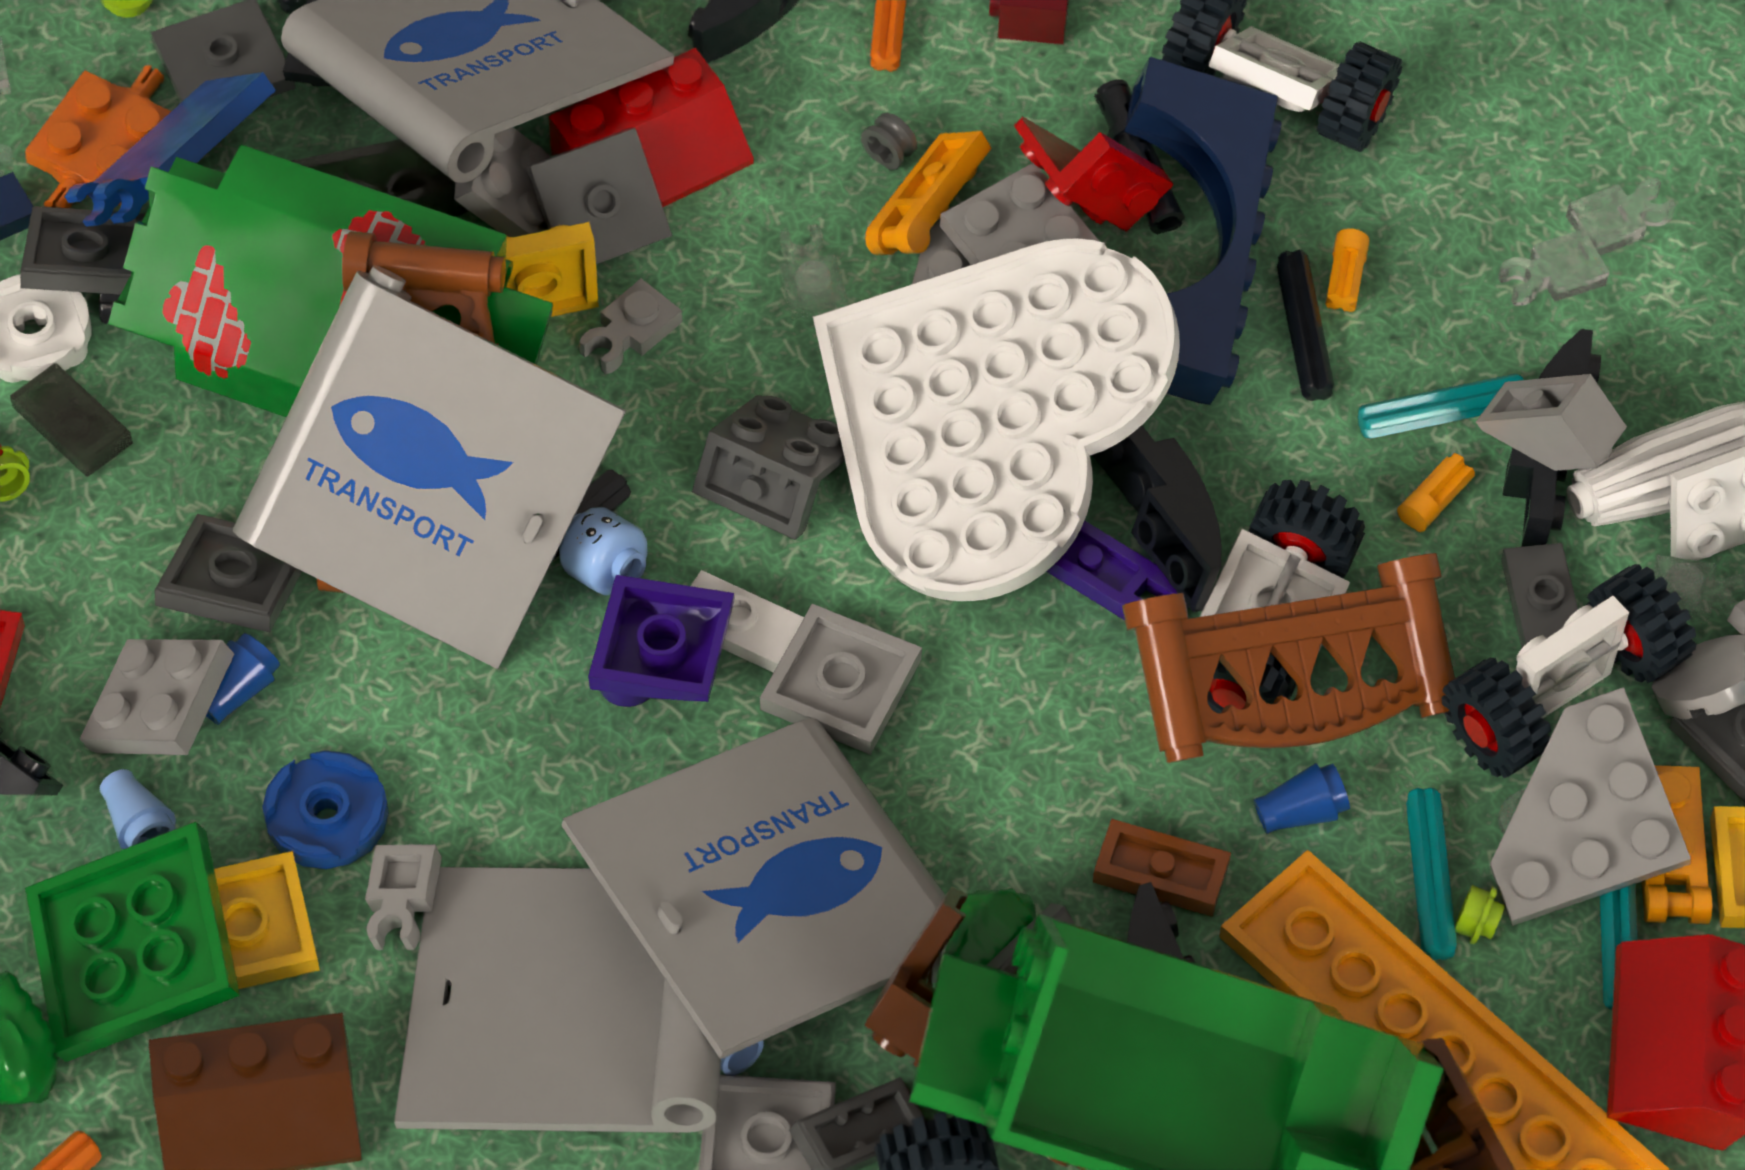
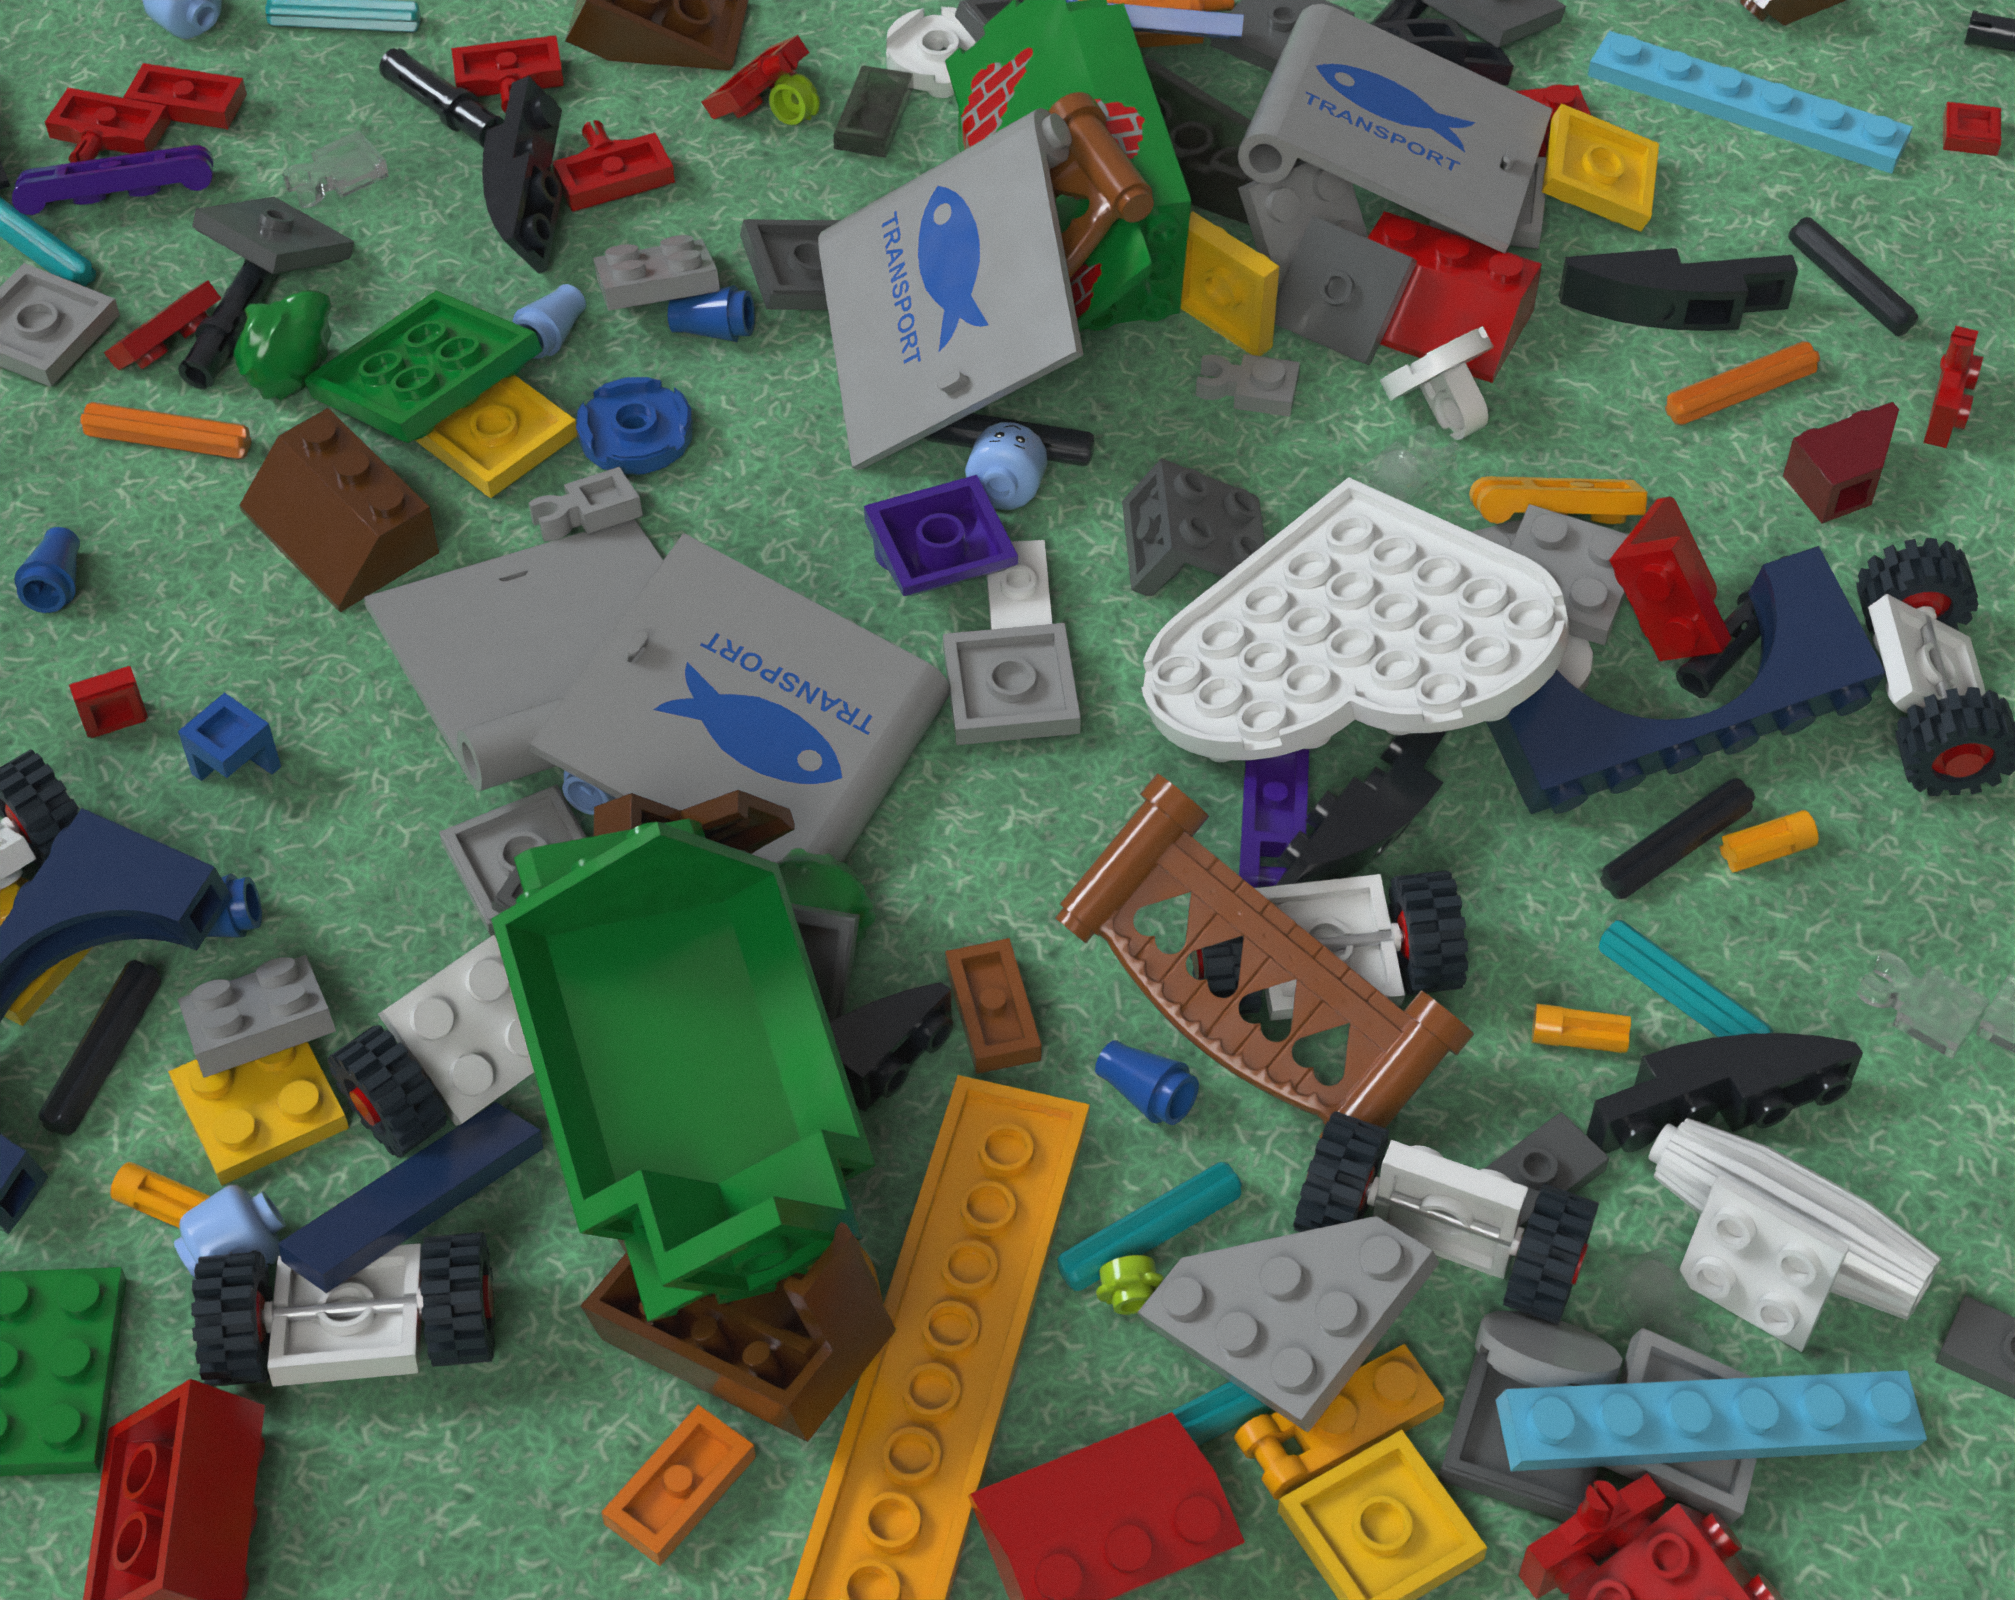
camera: 60 degrees right, 5 degrees down
(747, 185) = (1447, 383): none -> white tile
(889, 140) = (1589, 448): dark grey bush -> none
(1555, 421) = (1708, 1060): light grey slope -> none

